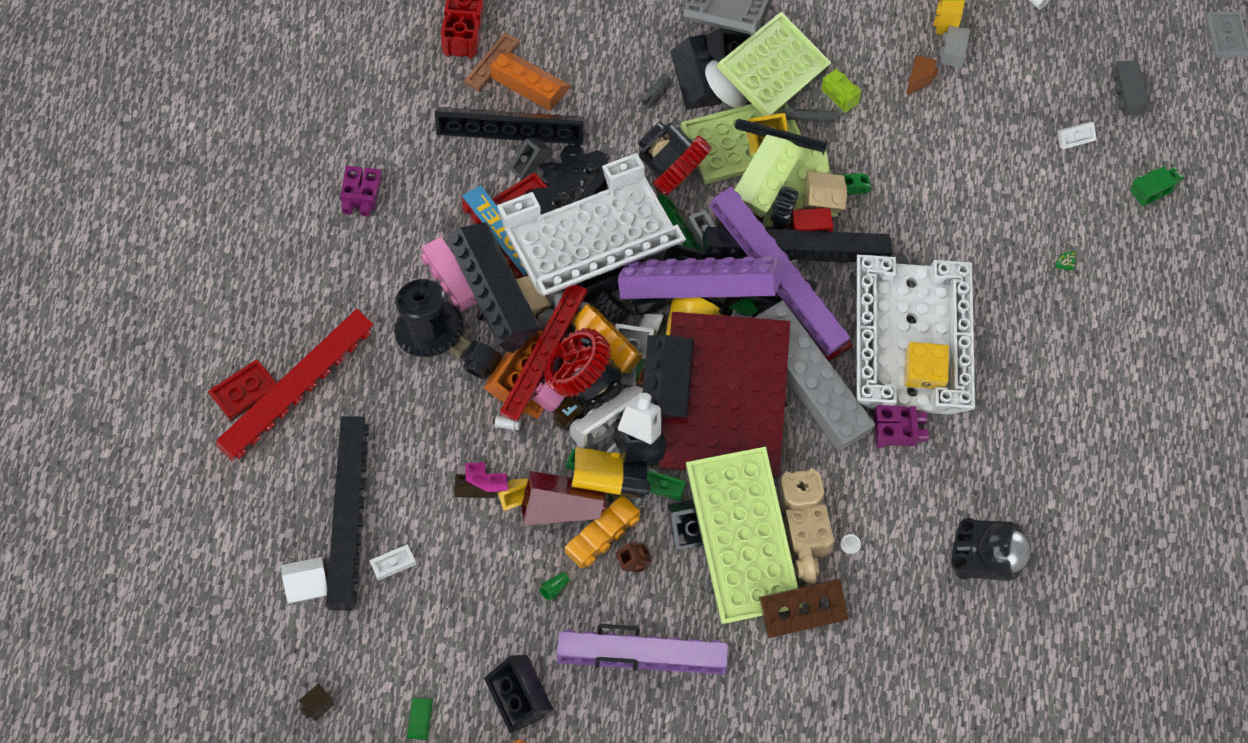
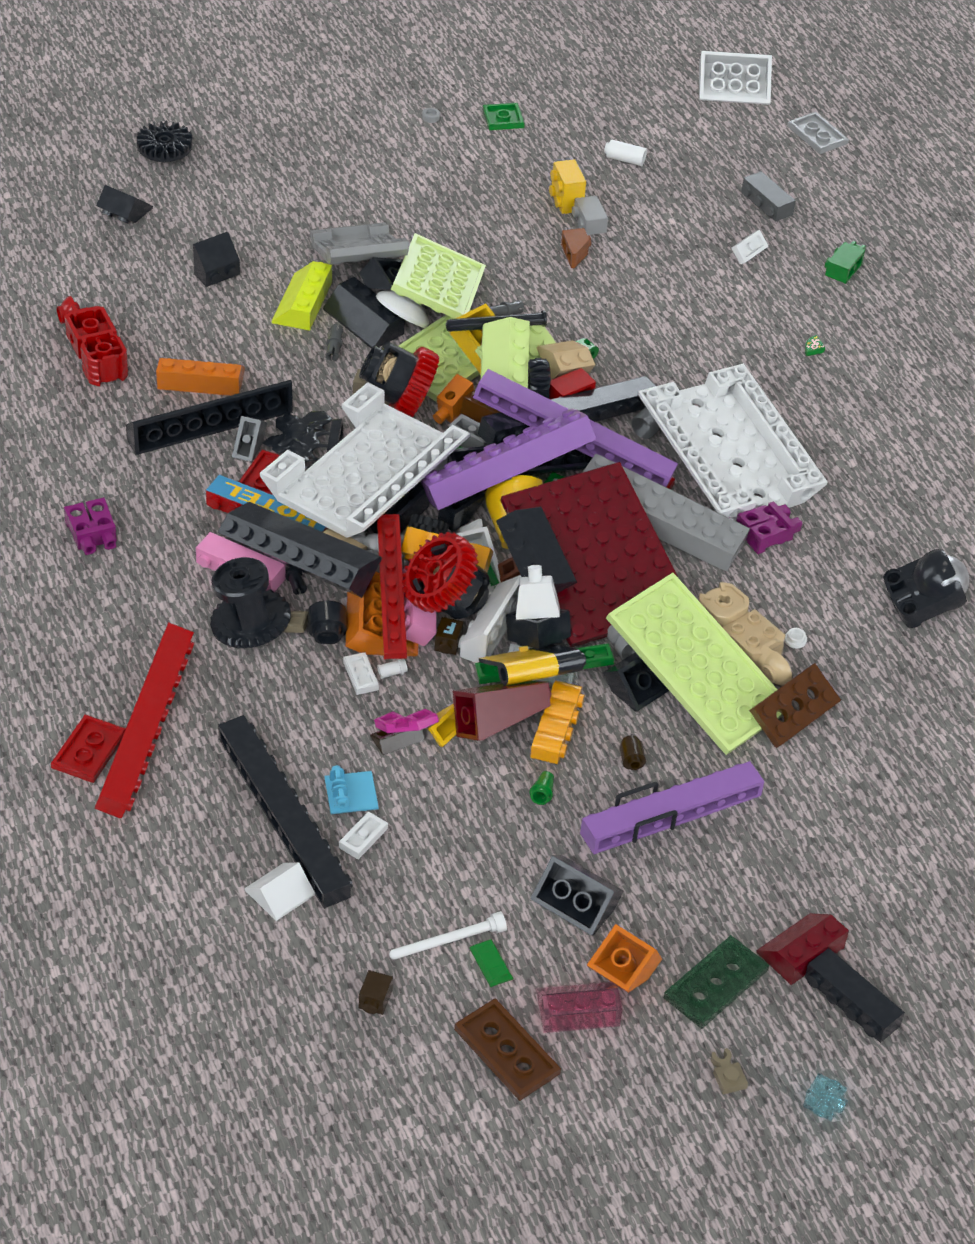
camera: 30 degrees left, 15 degrees down
(408, 519) = (350, 791): none -> medium azure hinge
(441, 687) = (494, 923): none -> white piece
(481, 73) = (147, 381): nougat tile -> none
(481, 416) = (361, 673): none -> white plate
(634, 557) = (605, 728): copper brick -> none
(644, 588) = (632, 753): none -> dark brown brick
(658, 36) = (304, 296): none -> neon yellow slope
(708, 189) = (451, 398): none -> orange torso
(841, 90) = (512, 280): lime brick -> none
(926, 365) = (761, 461): yellow brick -> none

